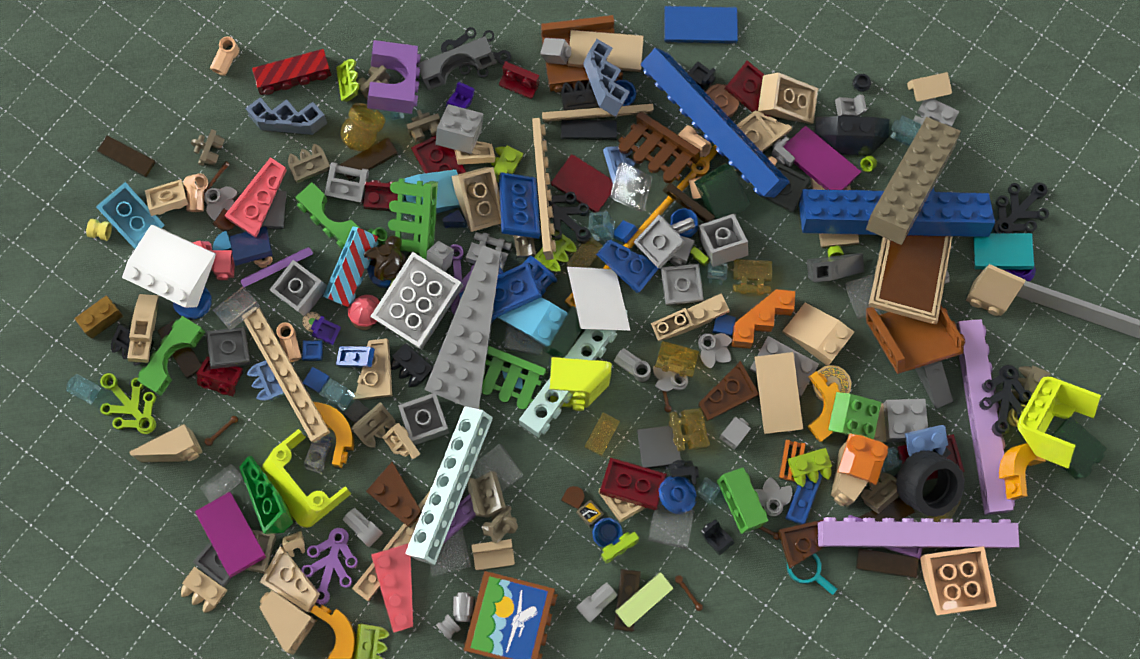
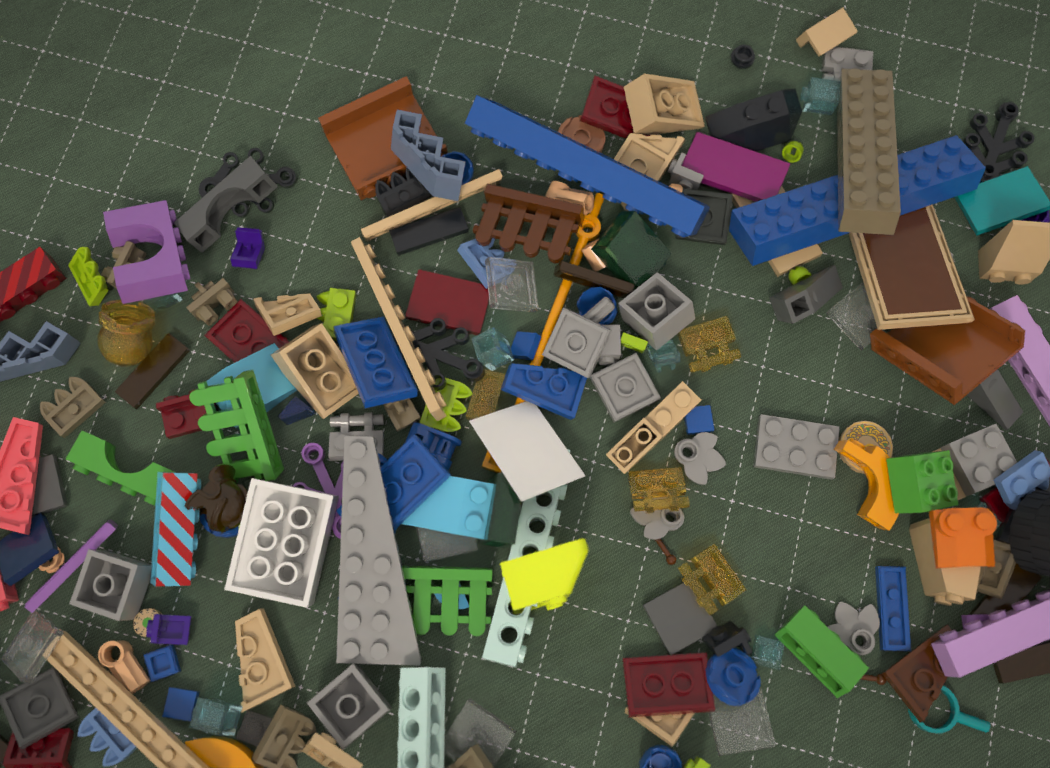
camera: 20 degrees left, 0 degrees up
(344, 188) = (131, 422): light grey plate -> none
(355, 356) = (224, 652): plate -> none
(361, 310) = (211, 580): coral piece -> none
(381, 233) = (201, 464): bright green plate -> none
(411, 364) = (307, 630): black plate -> none
(440, 255) = (293, 468): light grey brick -> none
(459, 129) = (258, 288): light grey brick -> none
(519, 80) = (316, 198): dark red bracket -> none
(555, 51) = (349, 145): light grey brick -> none
(573, 496) = (594, 732): reddish brown tile -> none
(589, 513) = (625, 747): slope -> none
(602, 434) = (599, 629): clear yellow plate -> none
(624, 55) = (439, 118): tan tile -> none
(631, 364) = (600, 518): light grey piece -> none
(700, 24) = (519, 54): blue tile -> none
(702, 75) = (546, 112): black bracket -> none
(717, 537) = (807, 715): black bracket -> none
(729, 393) = (742, 509): reddish brown wing -> none
(735, 432) = (772, 559): light grey brick -> none
(762, 317) = (745, 393): orange brick -> none
(778, 393) = (806, 485): tan tile -> none
(785, 453) = (868, 566): orange tile -> none
(809, 465) = (886, 567): lime plate -> none
(818, 333) = (823, 387): tan slope -> none
(850, 106) = (743, 89): light grey bracket -> none

